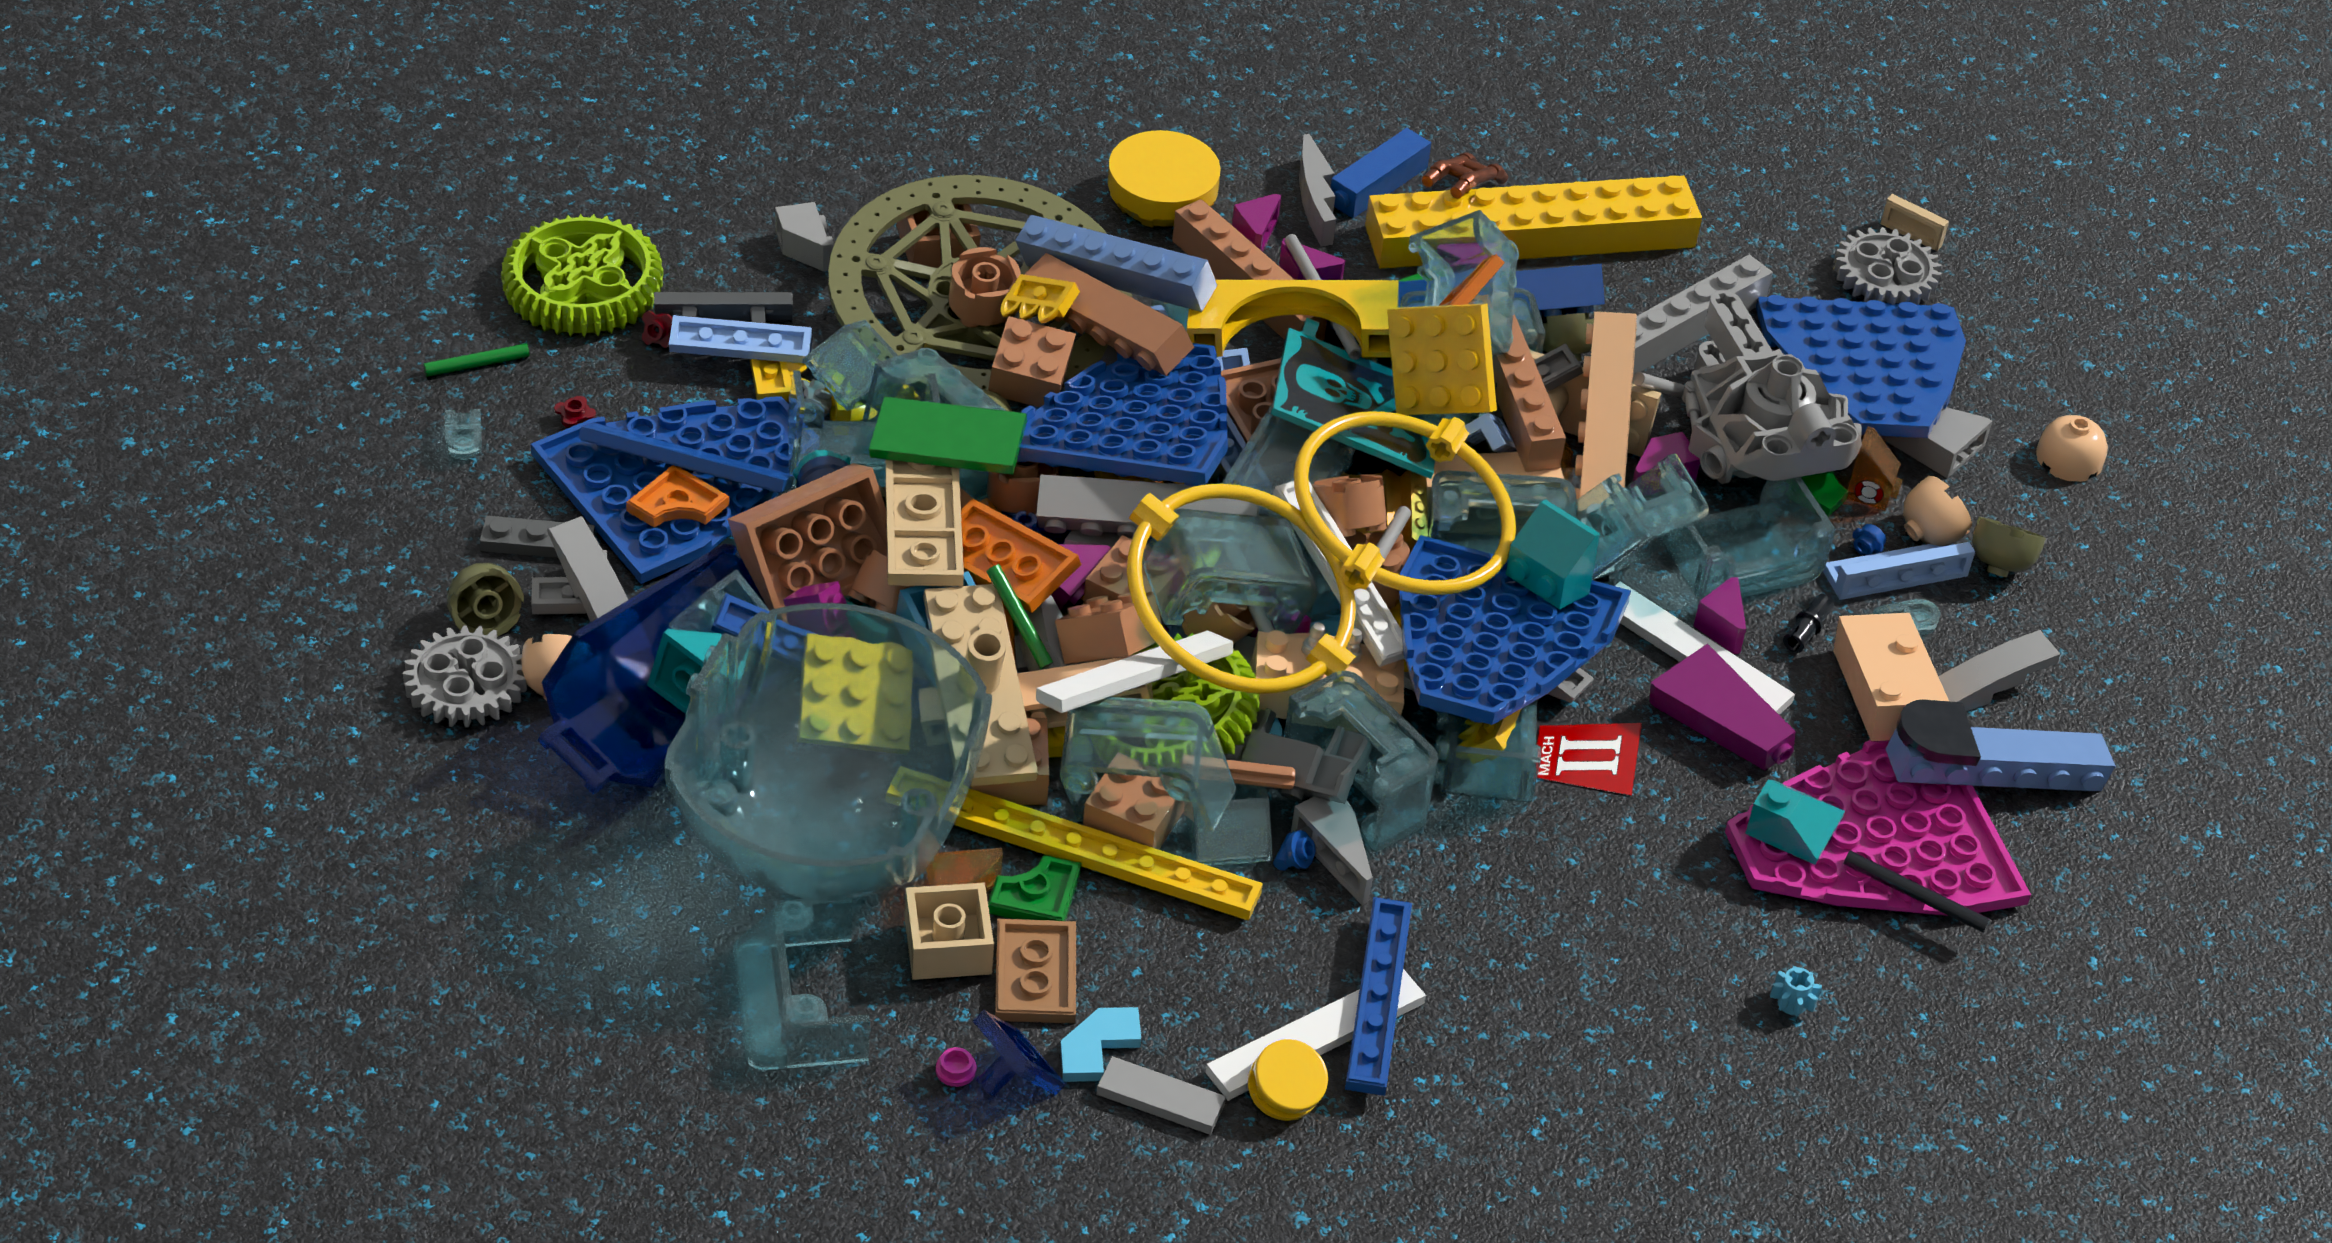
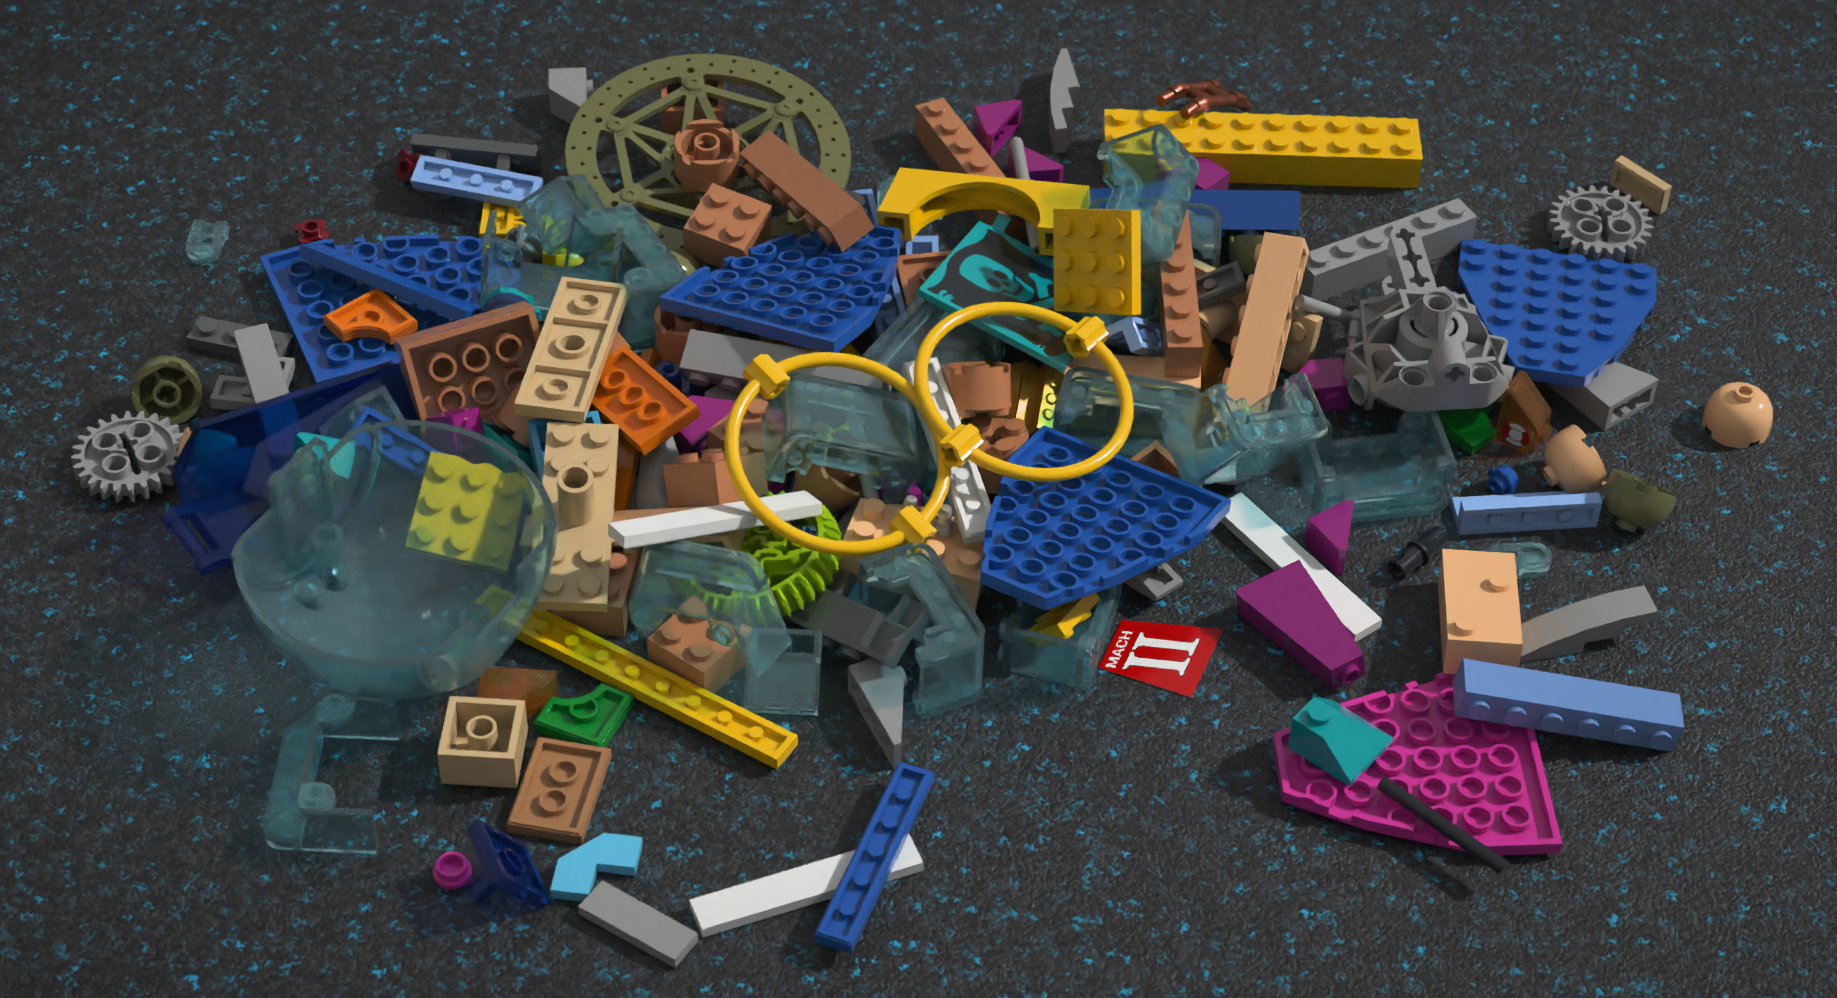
camera: 15 degrees right, 0 degrees up
(476, 360) = (242, 178): green bar -> none
(580, 266) = (358, 112): lime gear -> none
(948, 435) = (614, 284): green tile -> none
(1019, 616) = (631, 457): green bar -> none
(1039, 296) = (746, 170): yellow plate -> none
(1121, 262) = (834, 145): medium blue brick -> none
(1161, 173) = (915, 70): yellow piece -> none
(1262, 774) = (816, 631): nougat axle -> none
(1287, 1080) = (759, 925): yellow head -> none
(1295, 851) = (844, 709): blue plate -> none
(1380, 171) = (1126, 89): blue brick -> none
(1393, 530) = (1009, 424): light grey bar -> none
(1472, 285) = (1144, 190): orange tile -> none
(1554, 555) = (1155, 457): teal slope -> none
(1795, 991) = (1292, 907): medium azure gear -> none
(1939, 732) = (1500, 671): black tile -> none

